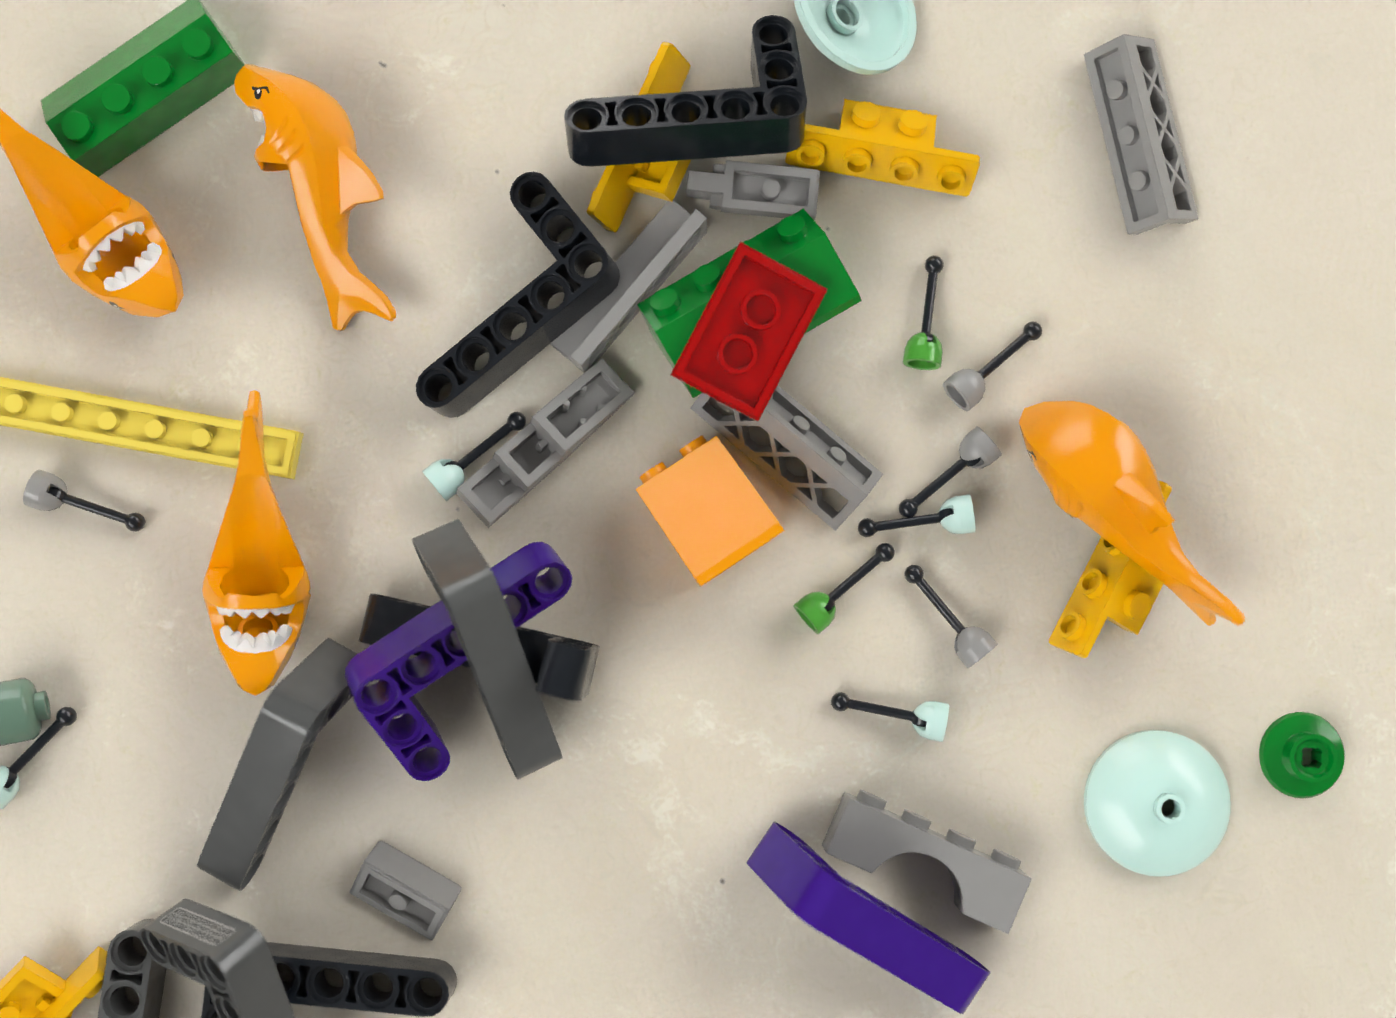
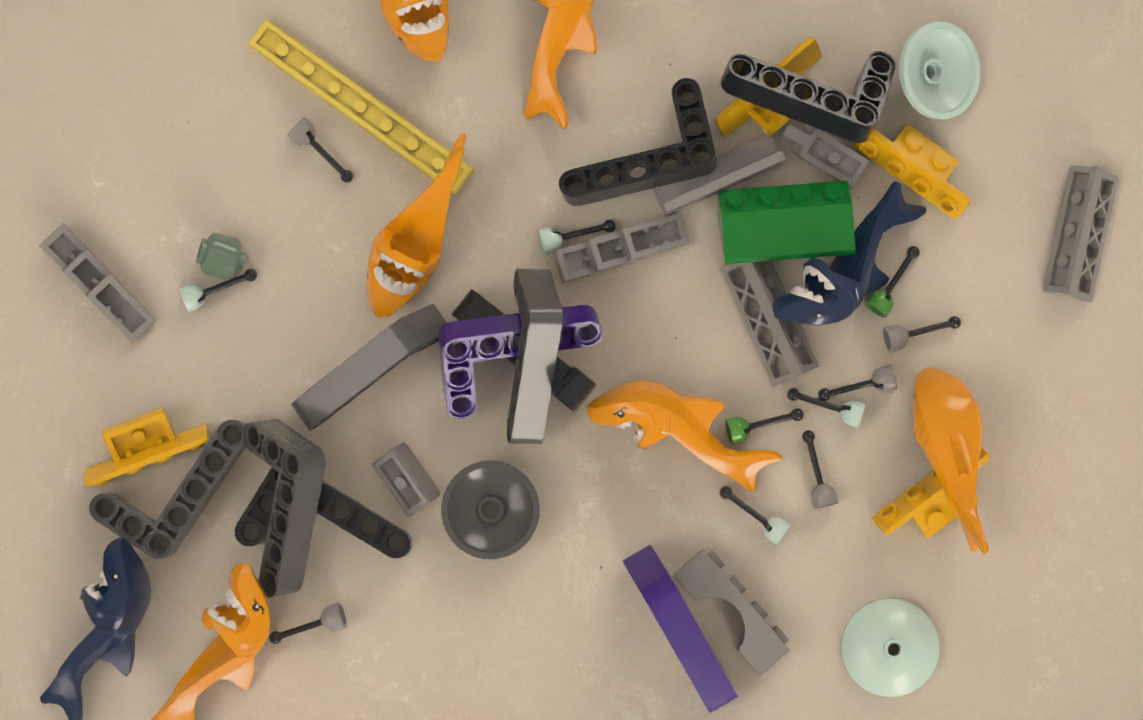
camera: 25 degrees right, 0 degrees up
(528, 917) = (465, 513): none -> dark grey dish
(707, 508) = (701, 336): light orange slope -> none
(742, 633) = (687, 418): none -> light orange piece
(748, 332) = (777, 241): red tile -> none
(862, 358) = (838, 290): none -> dark blue piece
(1282, 755) = (980, 655): green piece -> none

